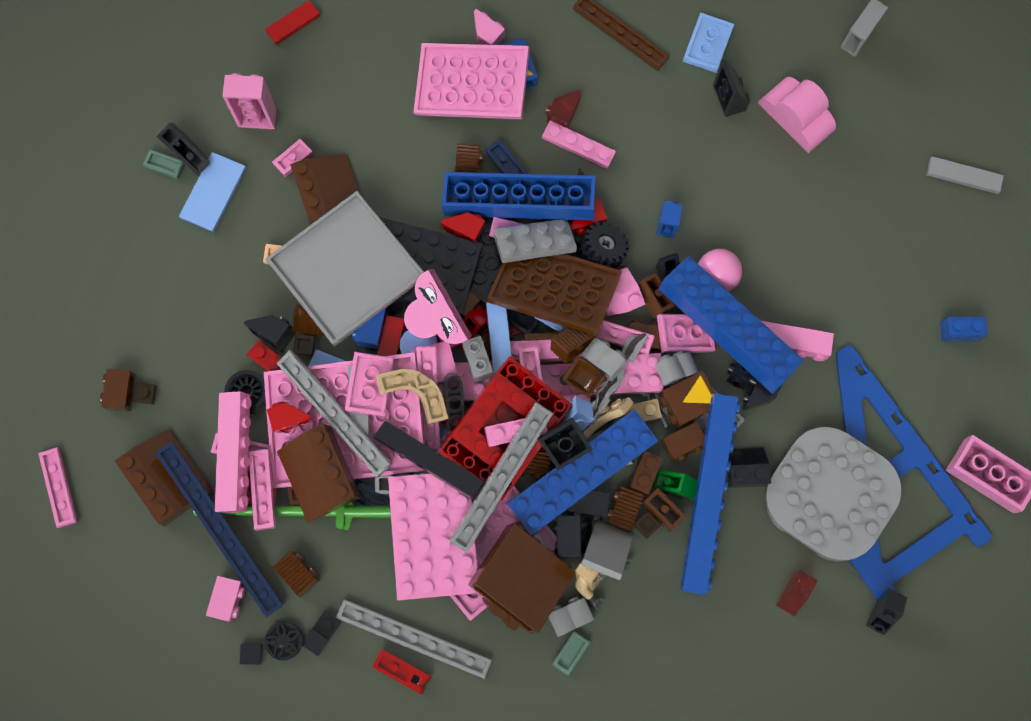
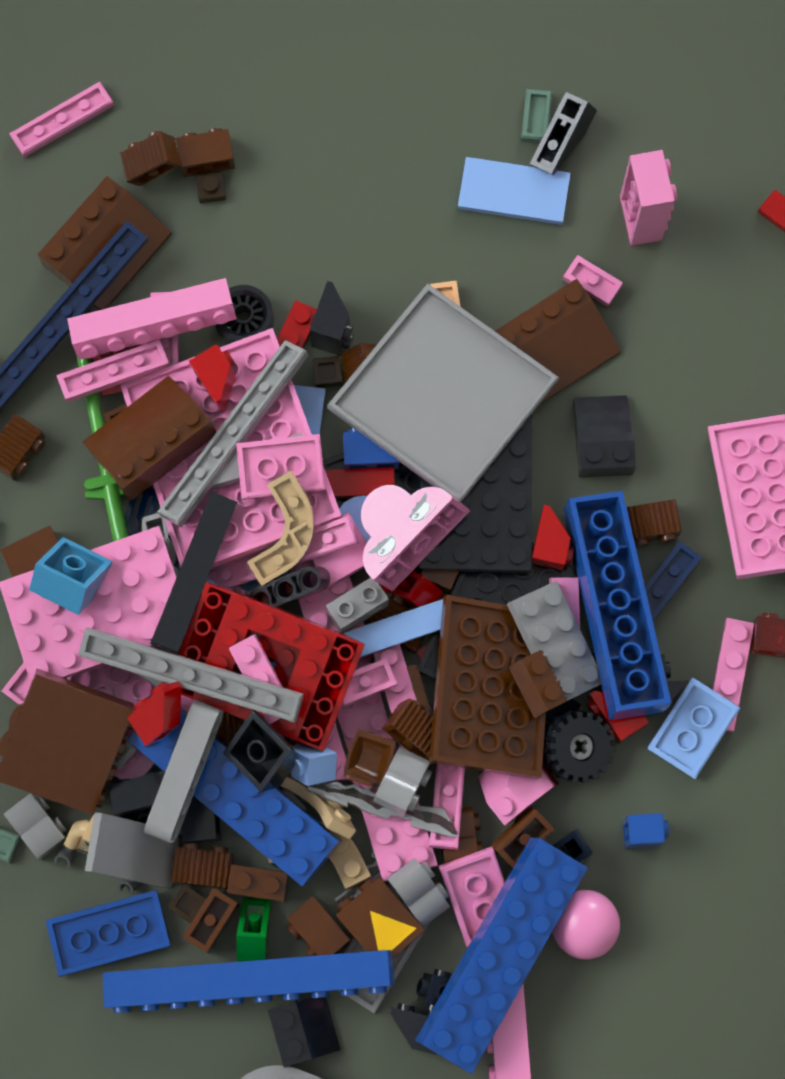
camera: 80 degrees right, 0 degrees up
(110, 428) = (150, 158): none -> reddish brown brick
(379, 576) = (28, 551): none -> reddish brown brick
(401, 178) = (604, 436): none -> black slope
(408, 545) = (69, 575): none -> dark azure slope
(524, 506) = (159, 714): none -> red slope
(561, 255) = (537, 683): none -> reddish brown brick
(565, 499) = (183, 771): none -> light grey beam
(612, 175) = (693, 728): none -> light blue tile
(654, 583) = (108, 933): none -> blue plate

